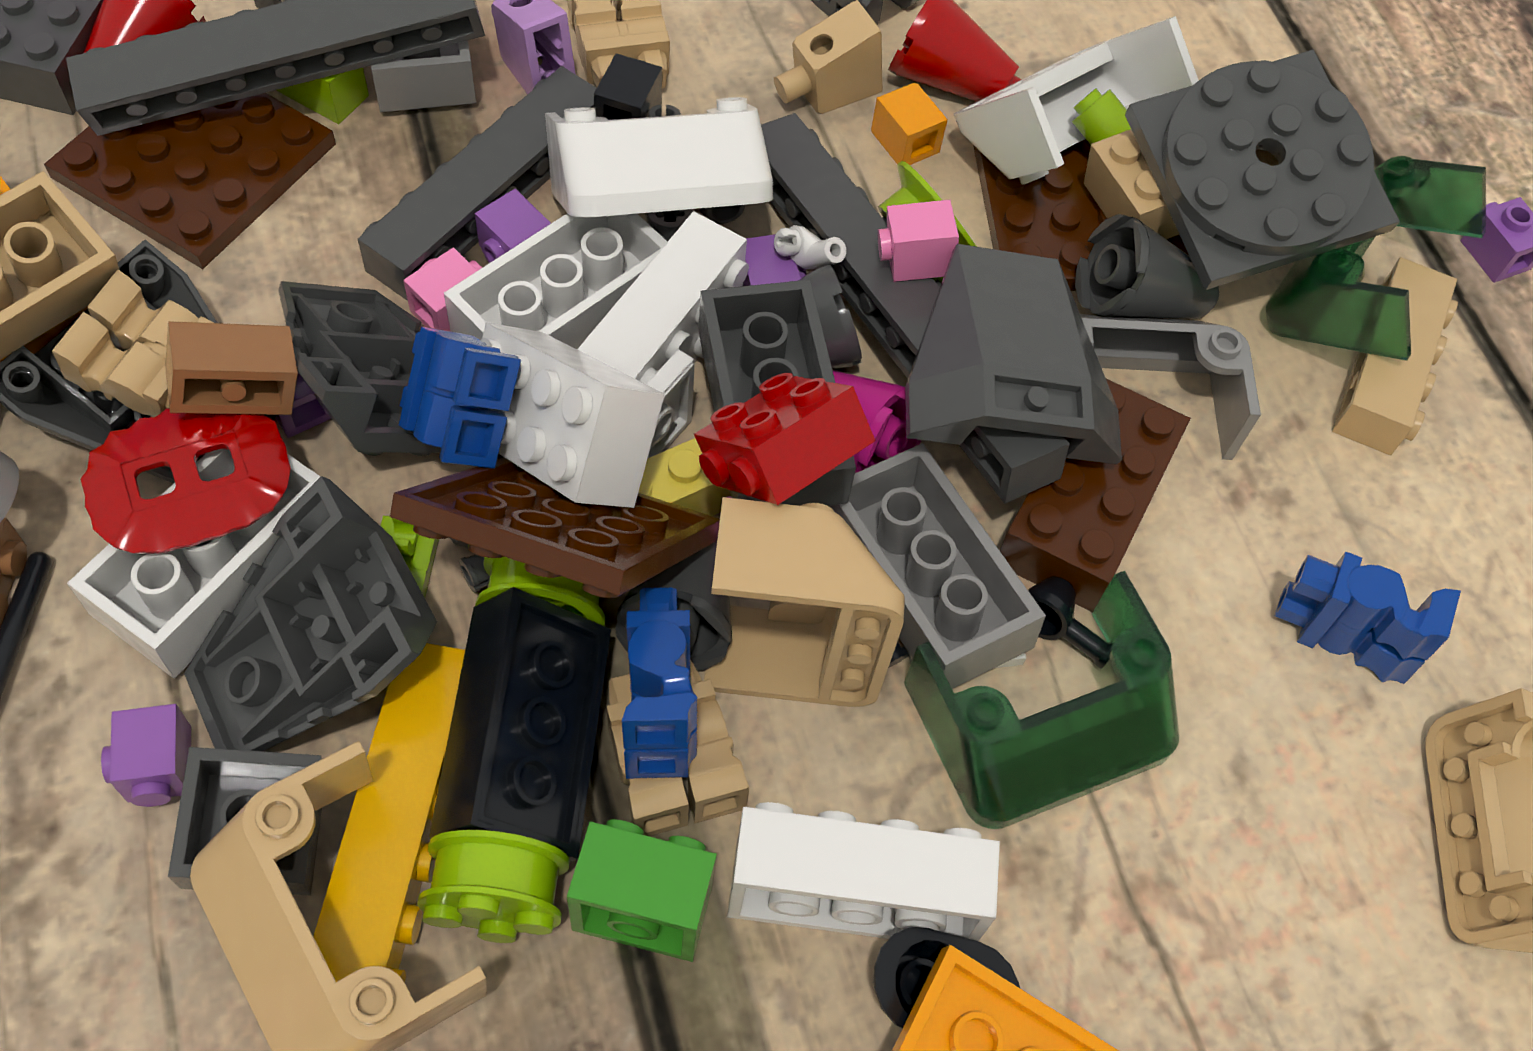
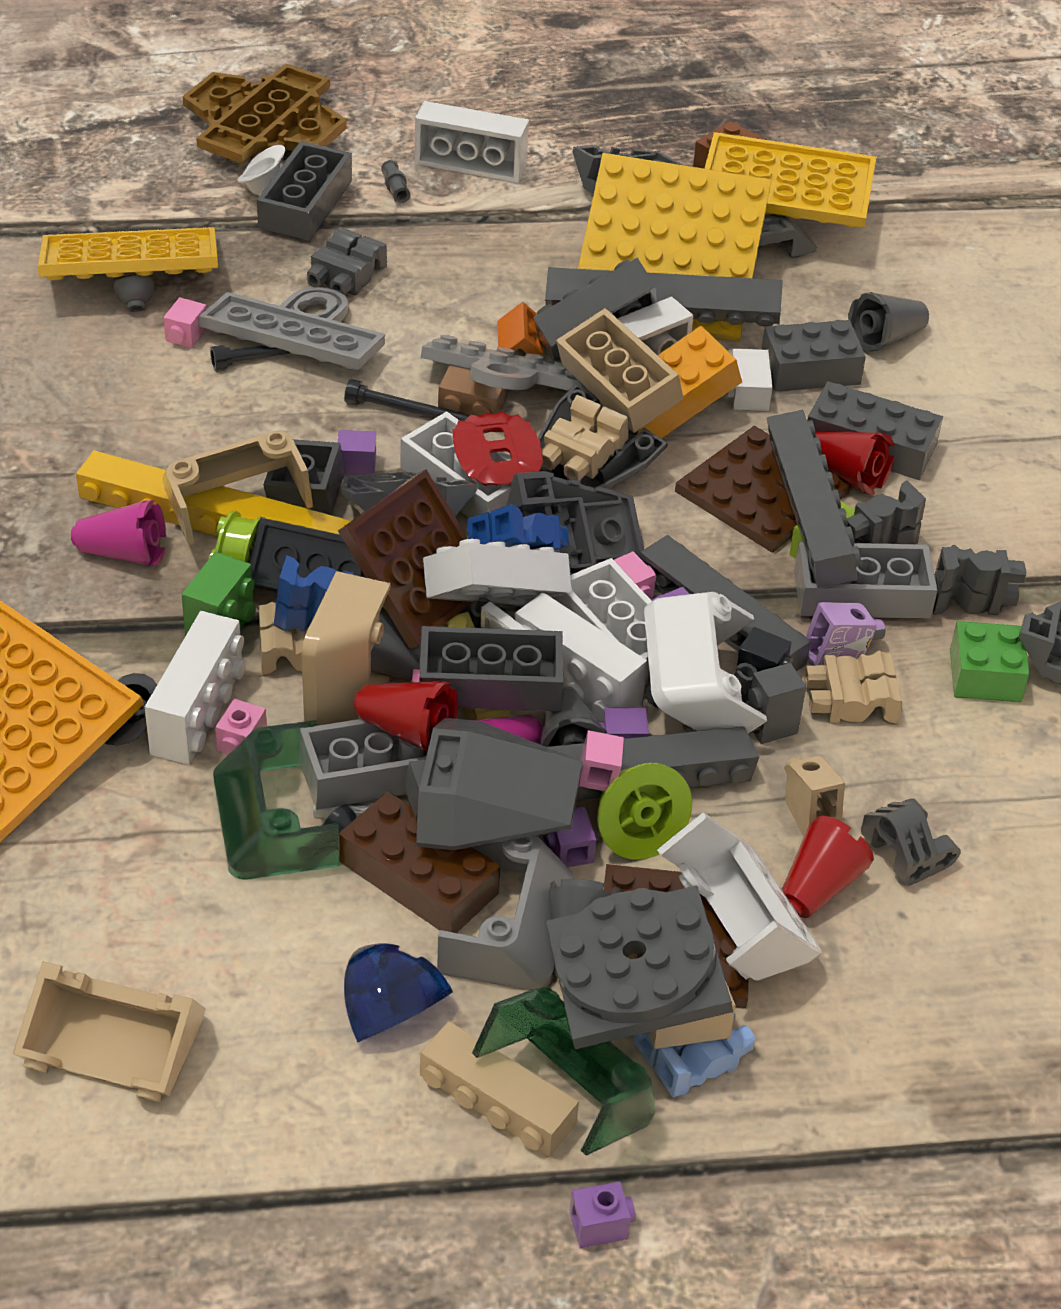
camera: 105 degrees right, 15 degrees down
(230, 368) = (553, 447): medium nougat brick -> none
(692, 77) = (780, 697): none -> dark grey brick
(783, 437) = (425, 616): red brick -> none
(808, 249) = (632, 727): white arm -> none
(902, 487) = (407, 708): none -> red cone
(908, 124) = (758, 826): light orange panel -> none
(909, 791) = (238, 723): none -> bright pink brick
(1100, 116) = (731, 928): lime brick -> none
(1324, 485) = (388, 988): none -> clear blue brick
(1366, 614) = (281, 975): blue hips -> none

